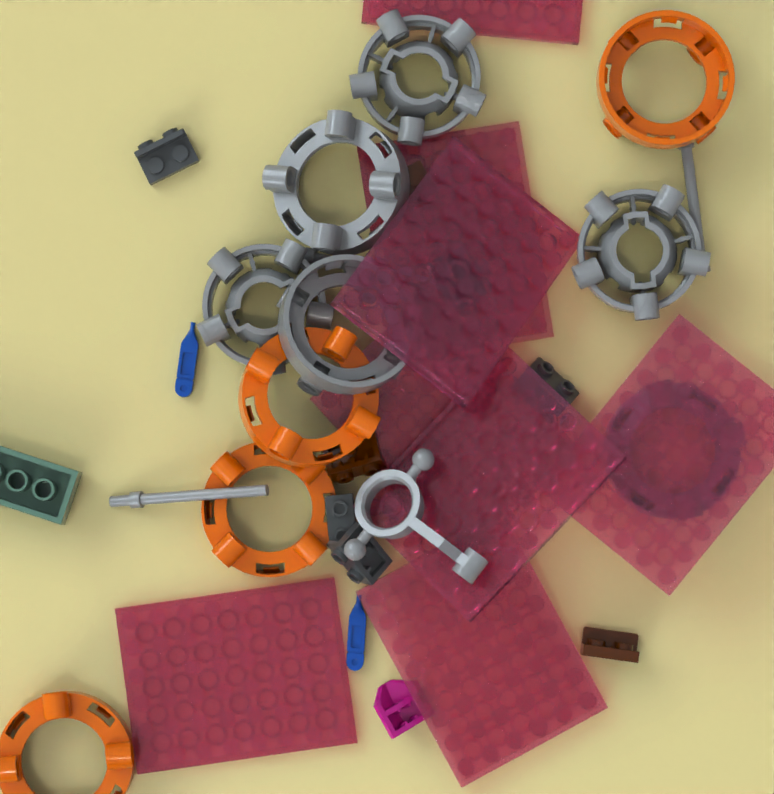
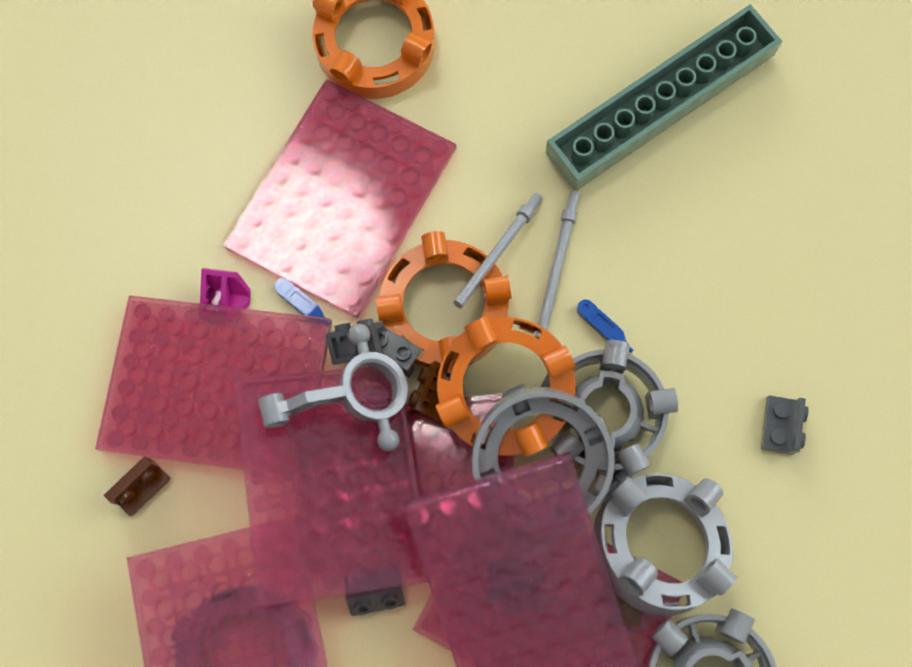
camera: 135 degrees right, 10 degrees down
(112, 459) = (568, 218): none -> light grey bar

